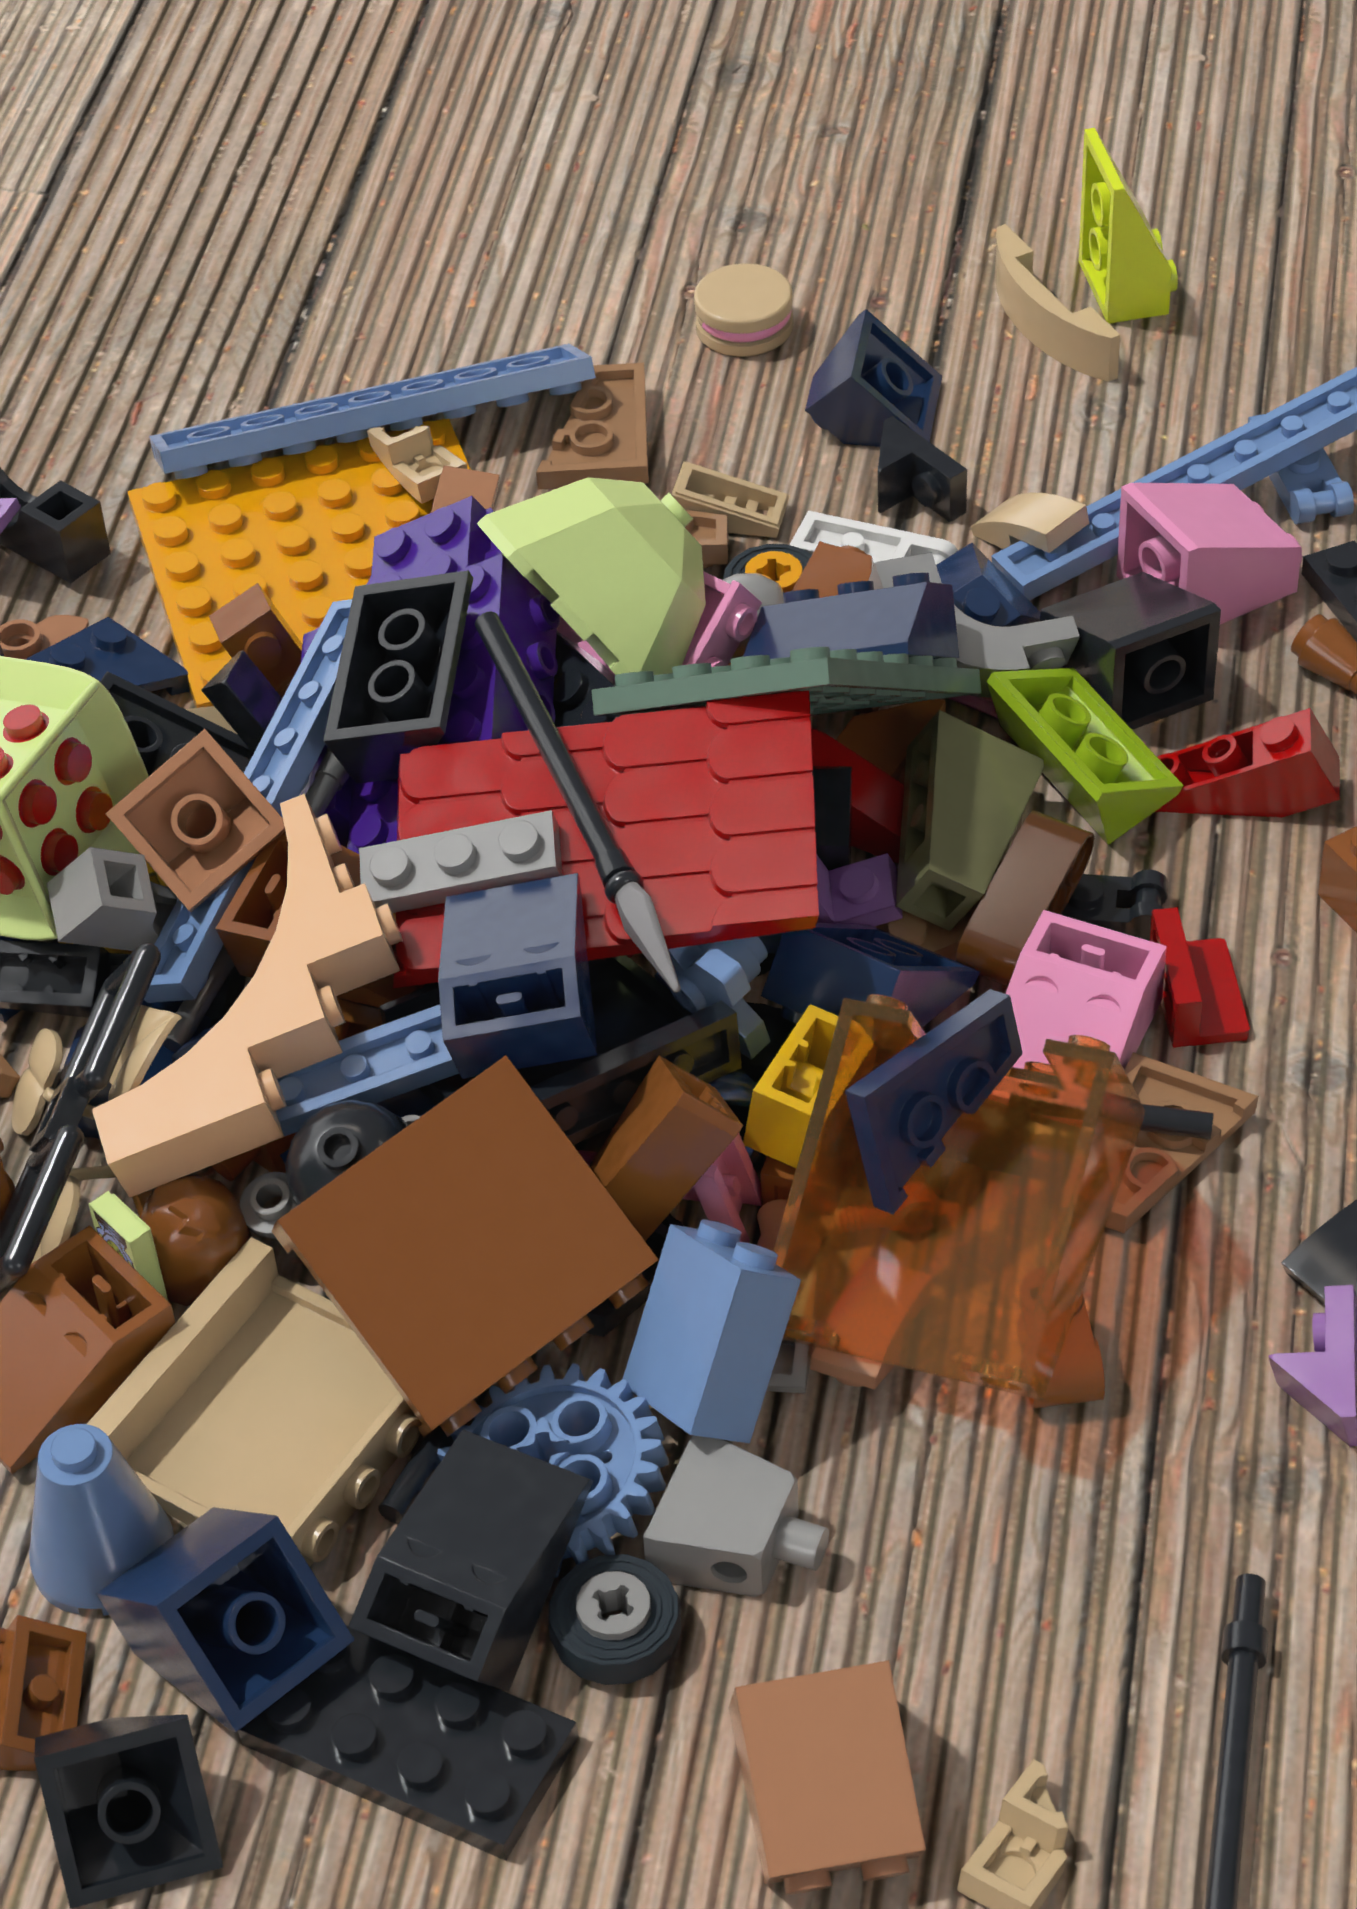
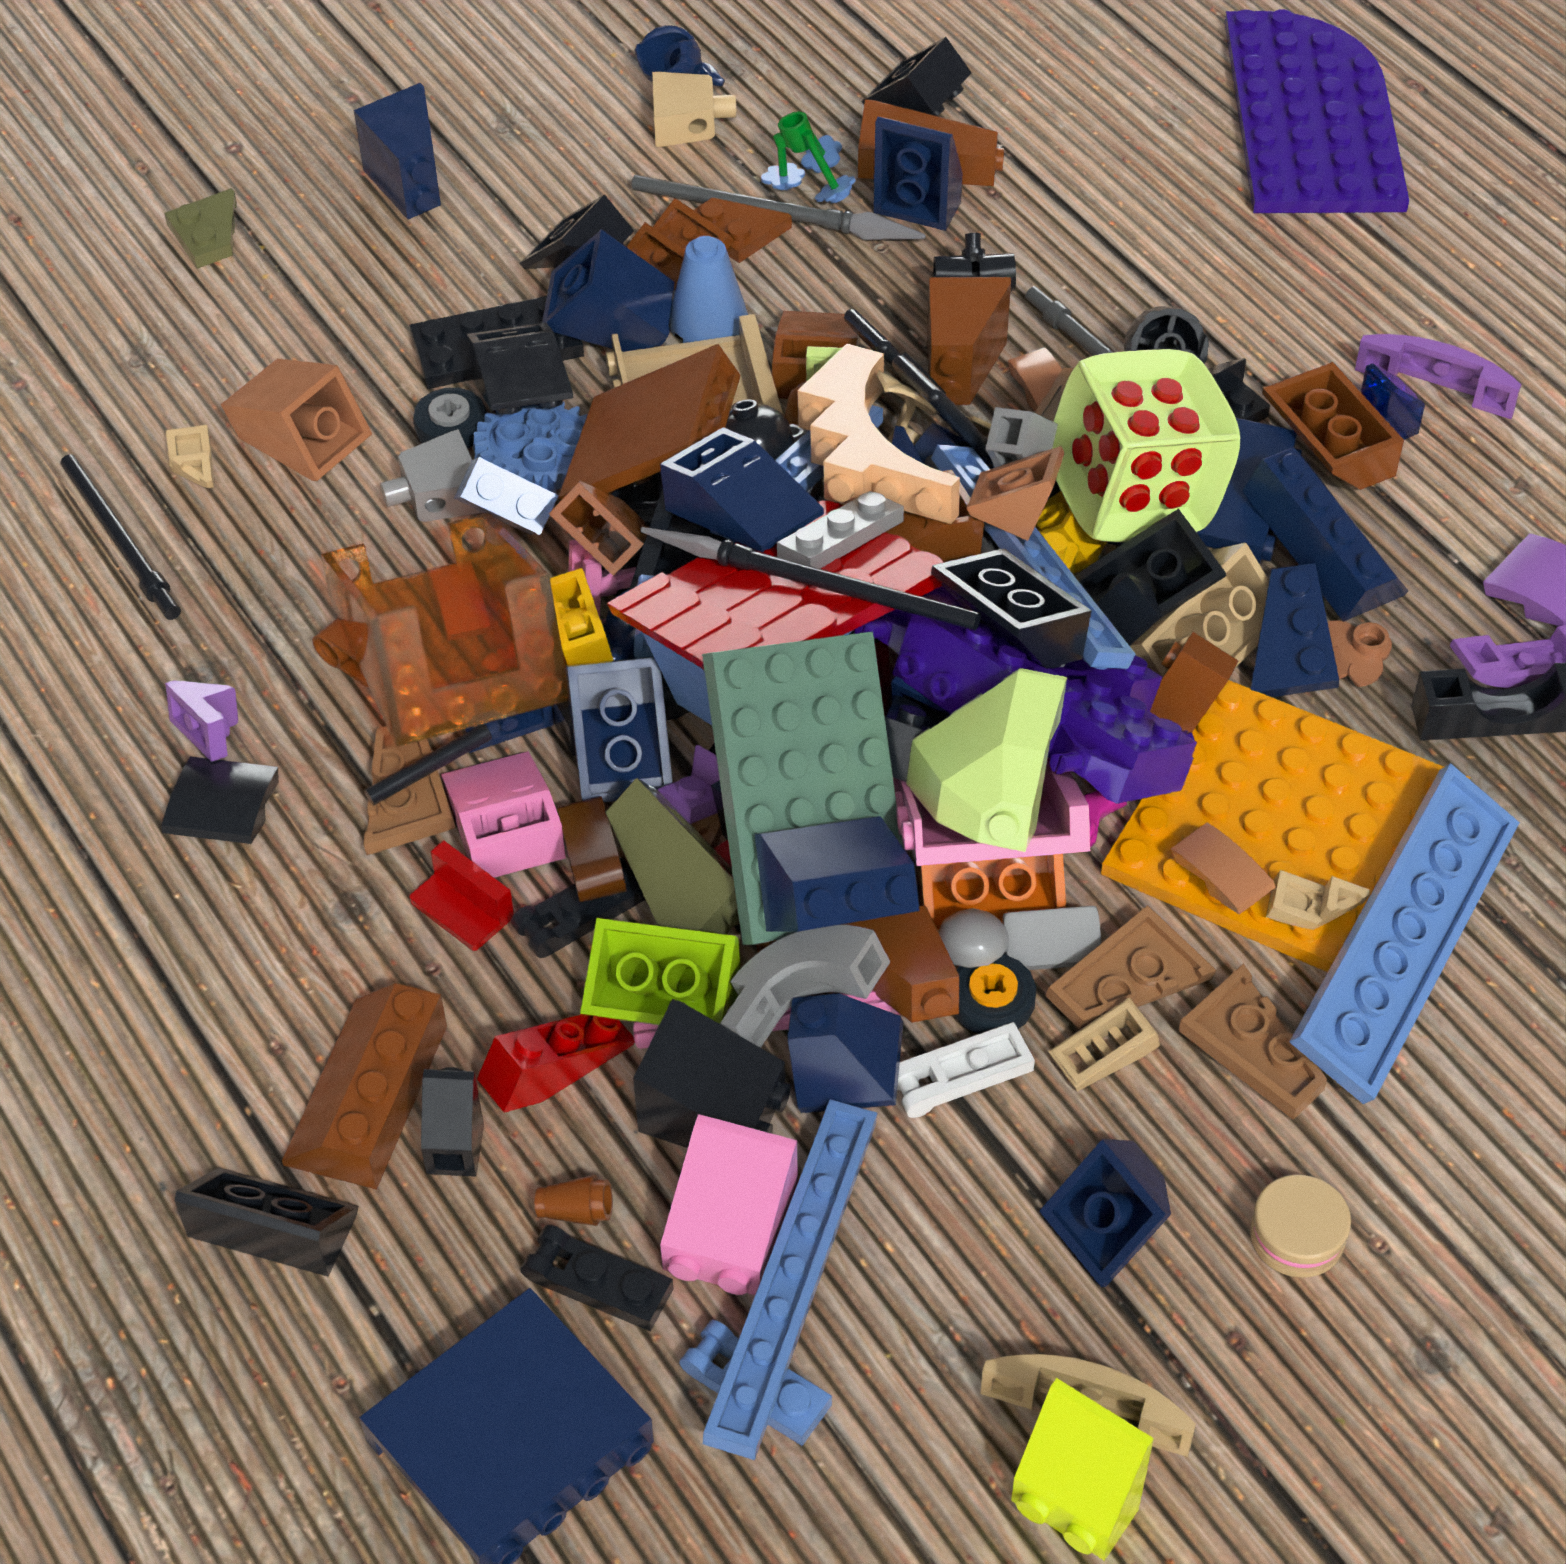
camera: 135 degrees right, 5 degrees up
(919, 469) = (1018, 1158): black slope -> none
(925, 1088) = (488, 620): dark blue wing -> none
(1033, 518) = (881, 1155): tan slope -> none

